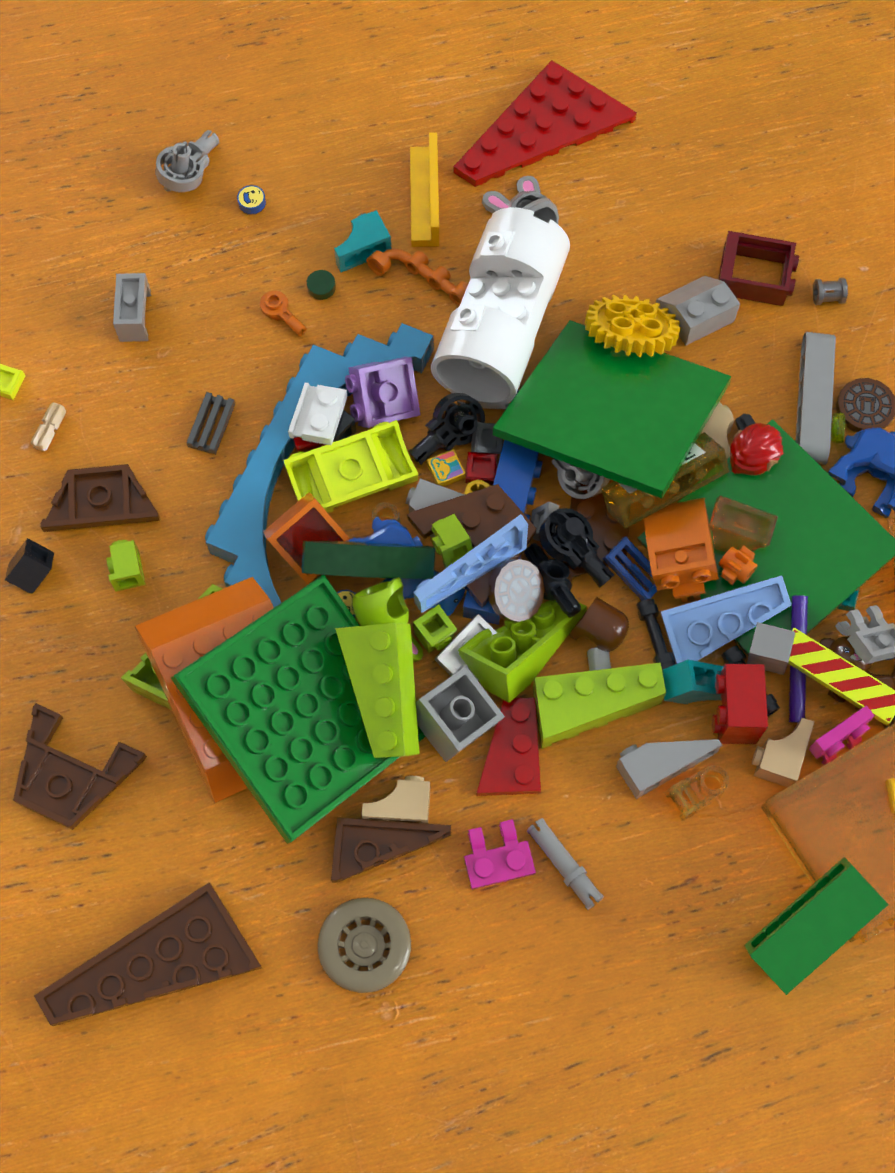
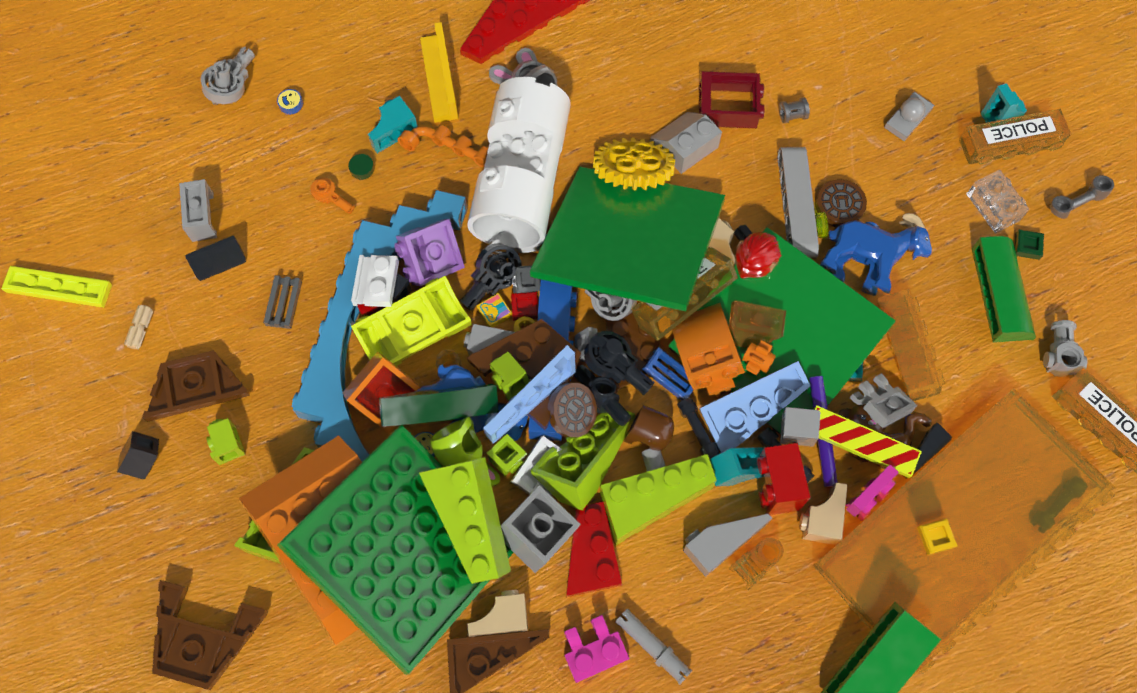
camera: 10 degrees left, 0 degrees up
(144, 363) = (216, 258): none -> black slope

